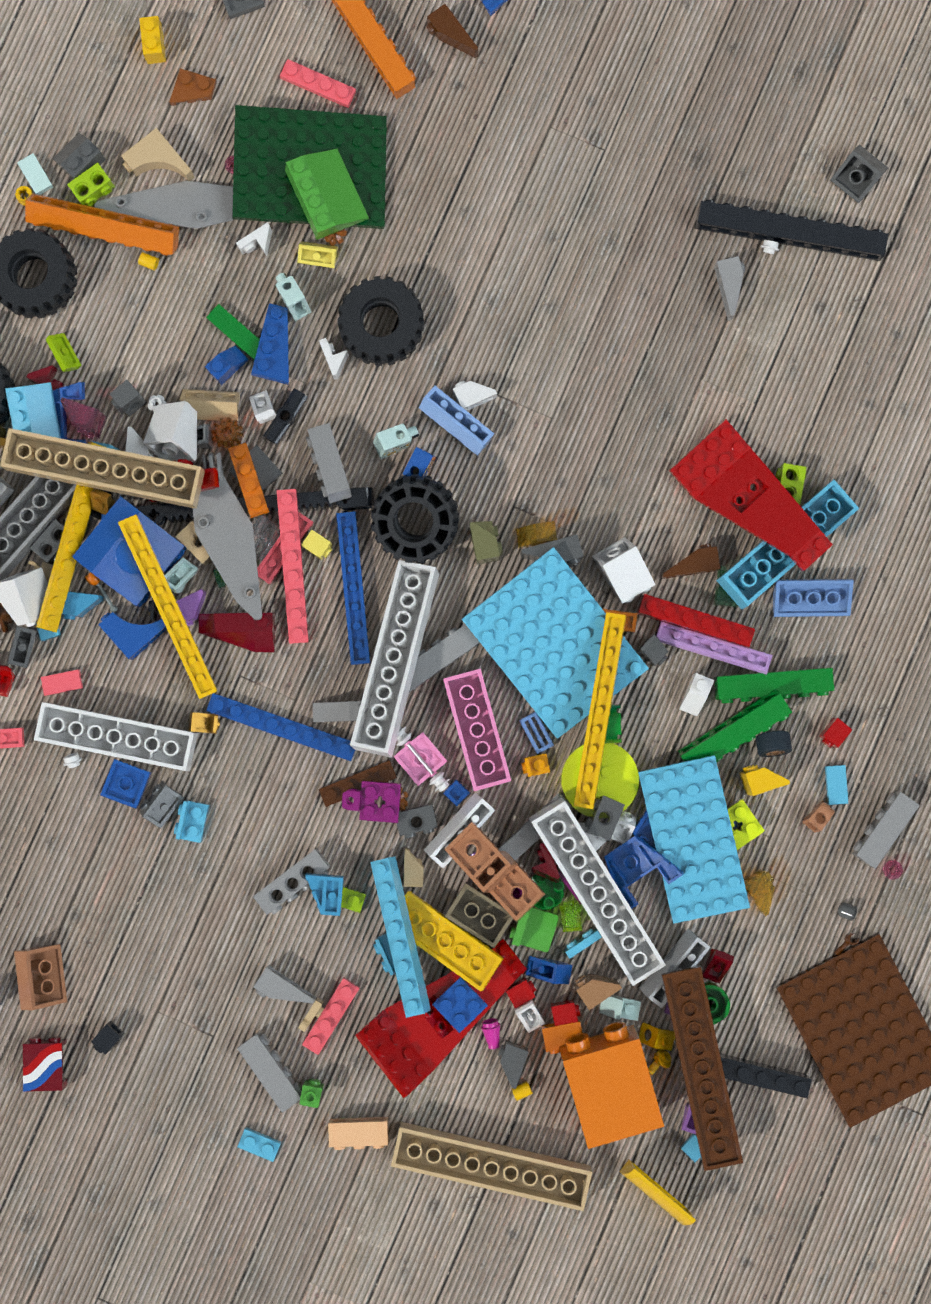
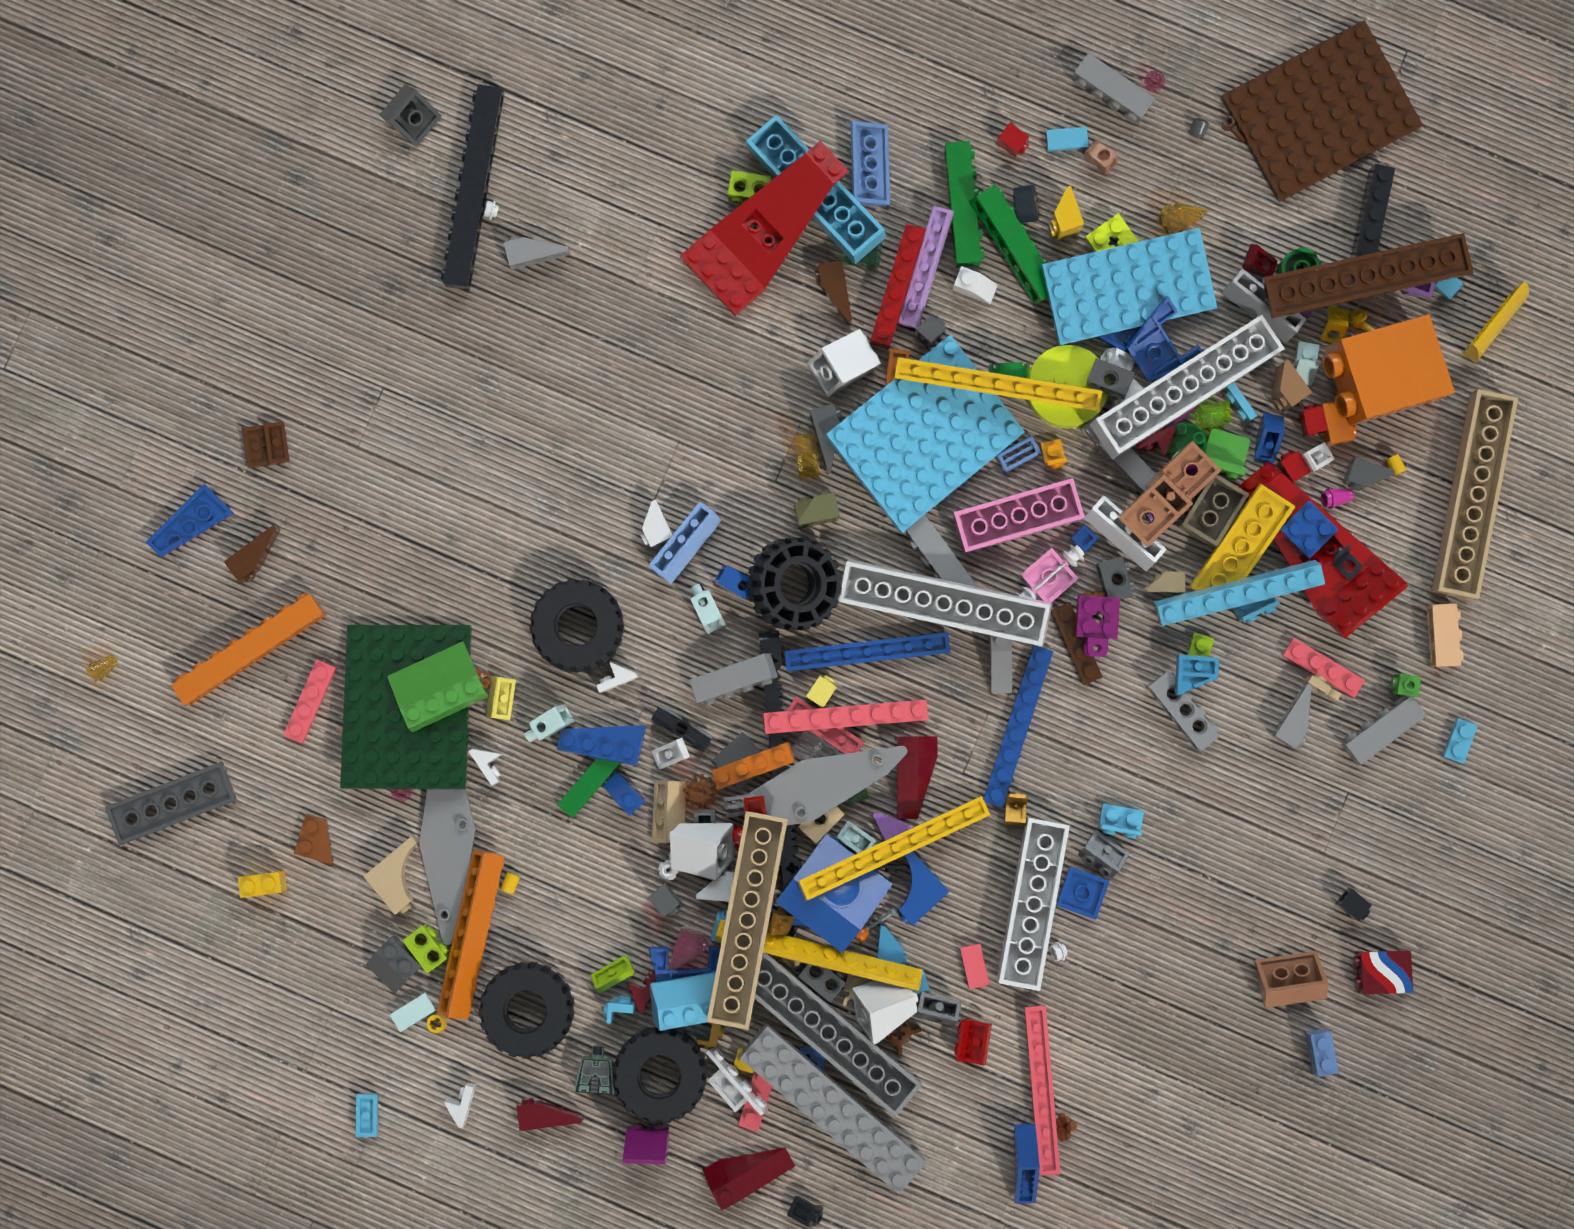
camera: 90 degrees left, 0 degrees up
(33, 356) = (622, 1004): none -> medium azure bracket
(434, 1036) = (1343, 555): none -> black bracket
(552, 43) = (265, 445): none -> reddish brown slope

